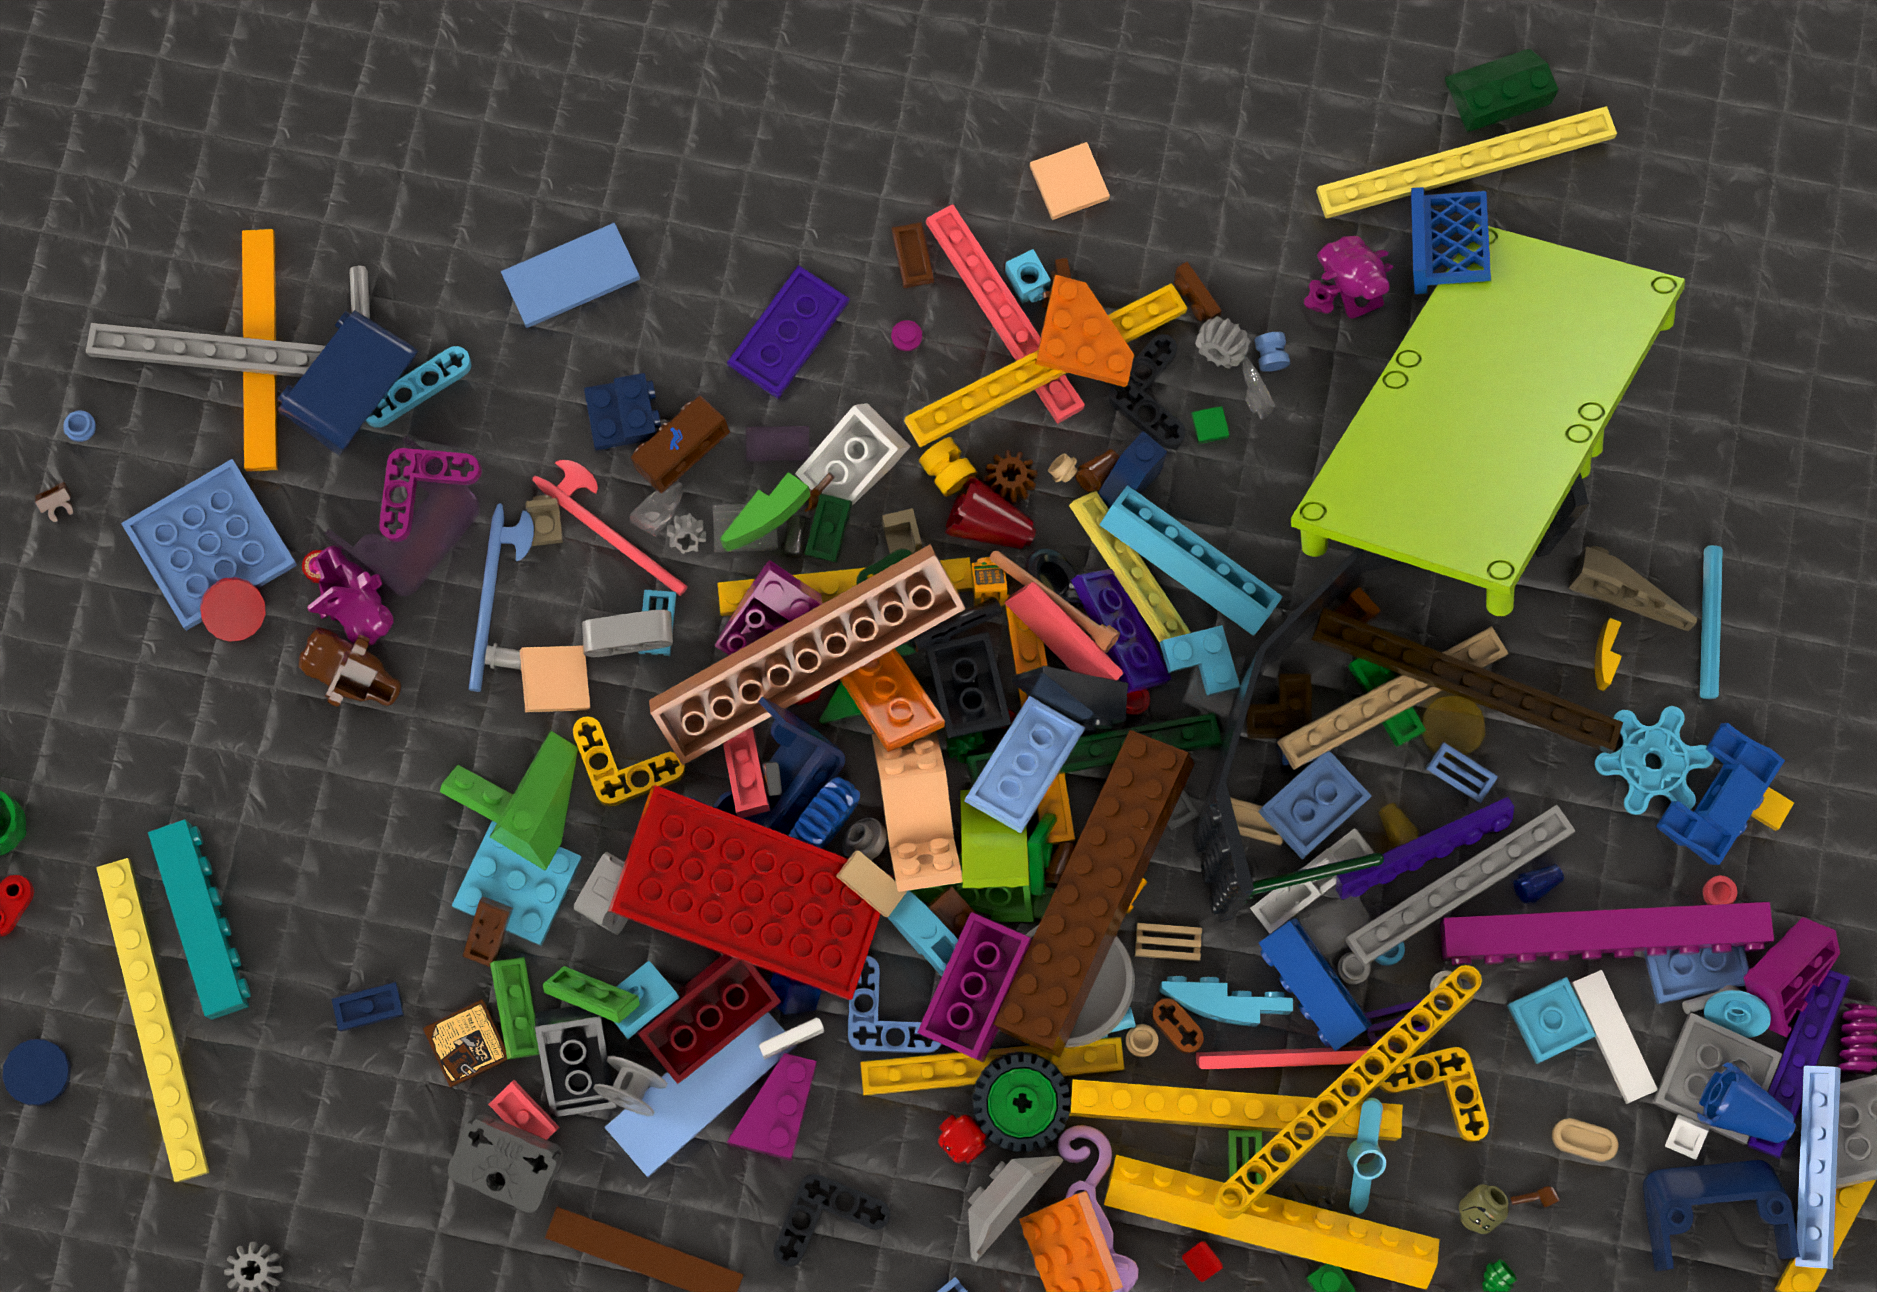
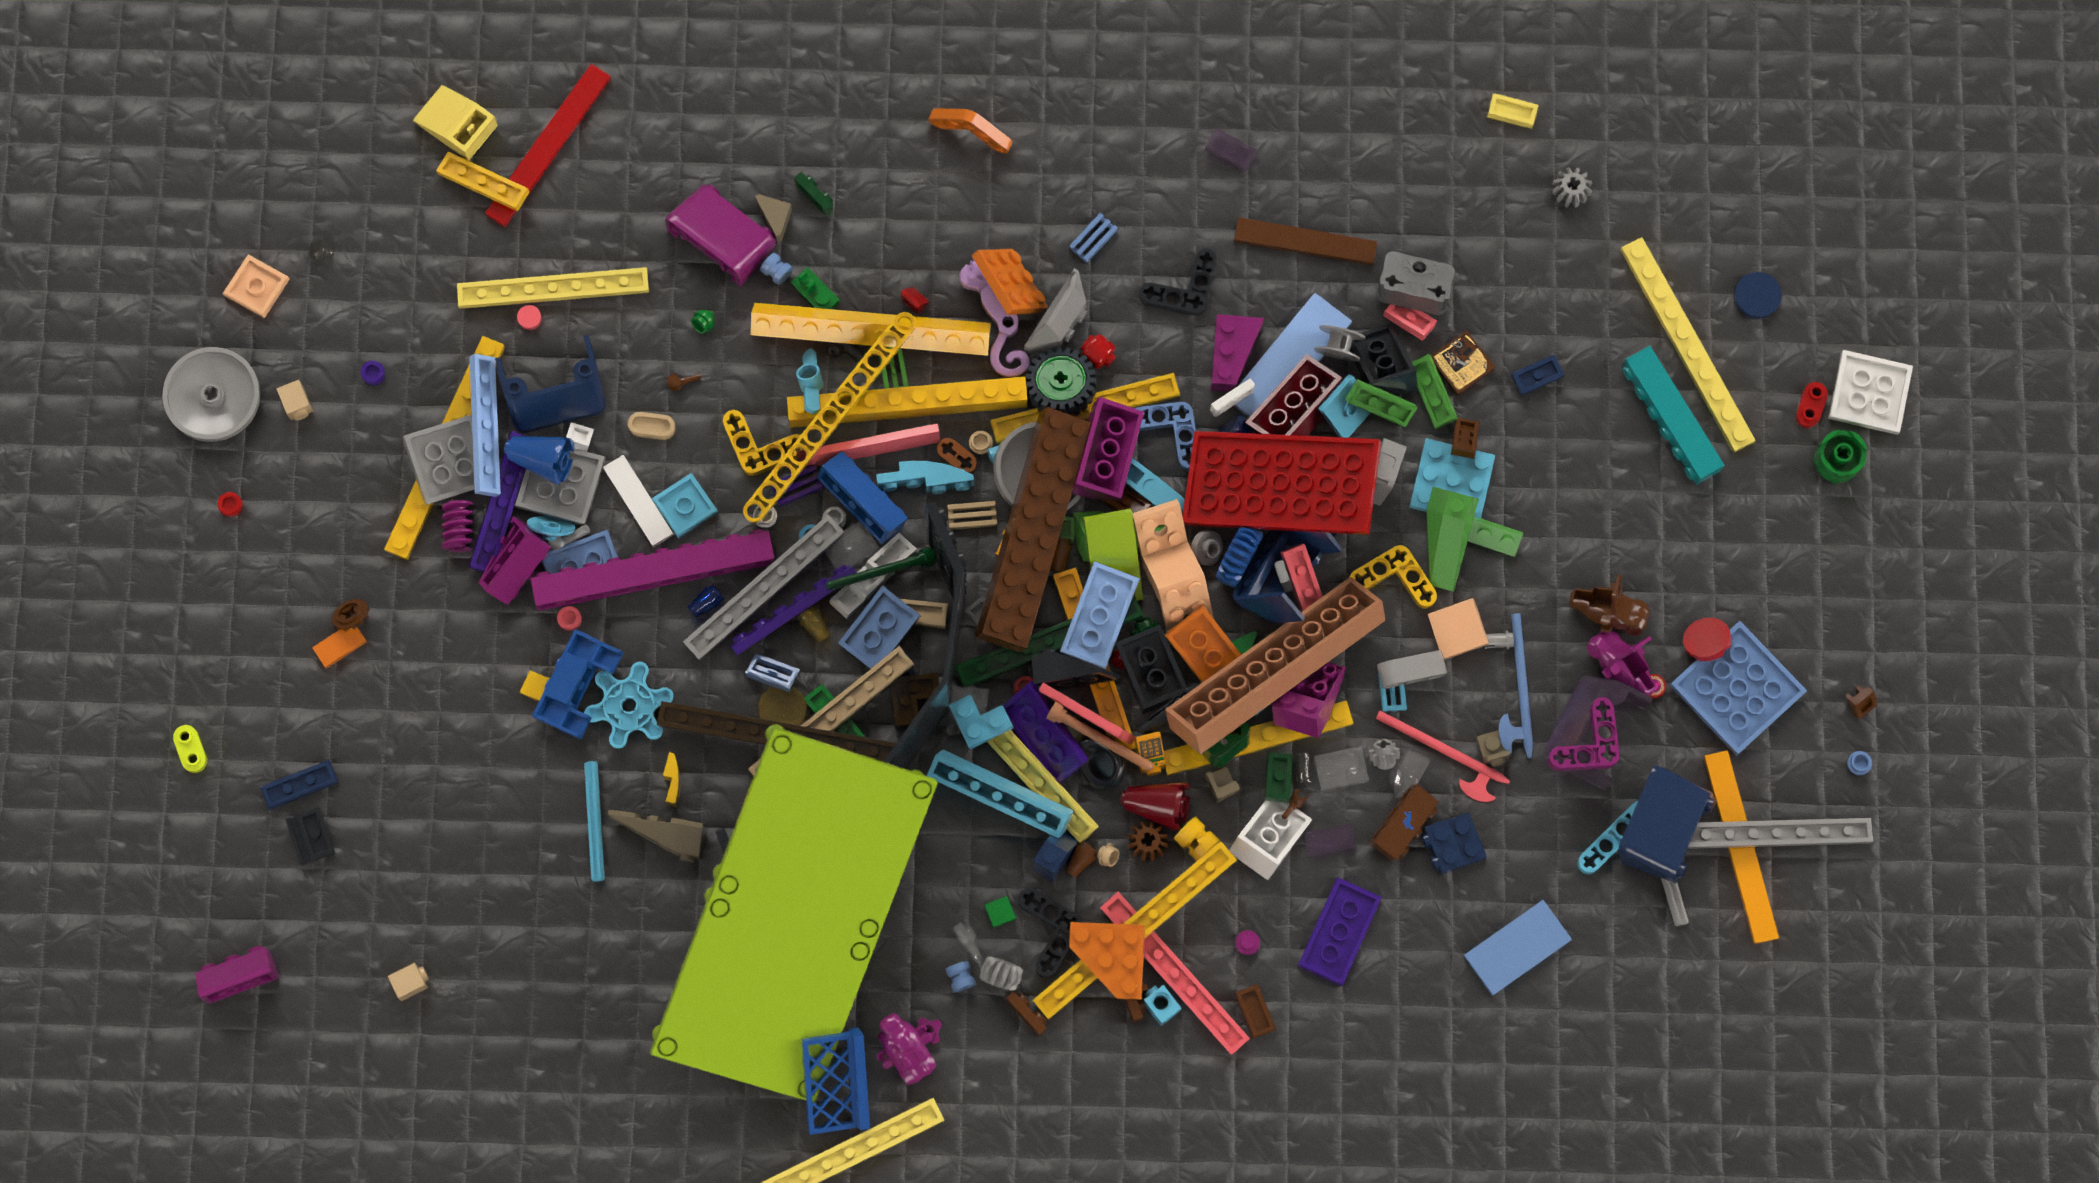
camera: 170 degrees right, 0 degrees up
(766, 512) = (1327, 775): bright green slope -> none
(871, 883) = (1198, 510): tan tile -> none
(1040, 853) = (1077, 557): green tile -> none
(1069, 180) = (1142, 1094): light nougat tile -> none
(1483, 1209) = (720, 362): olive head -> none

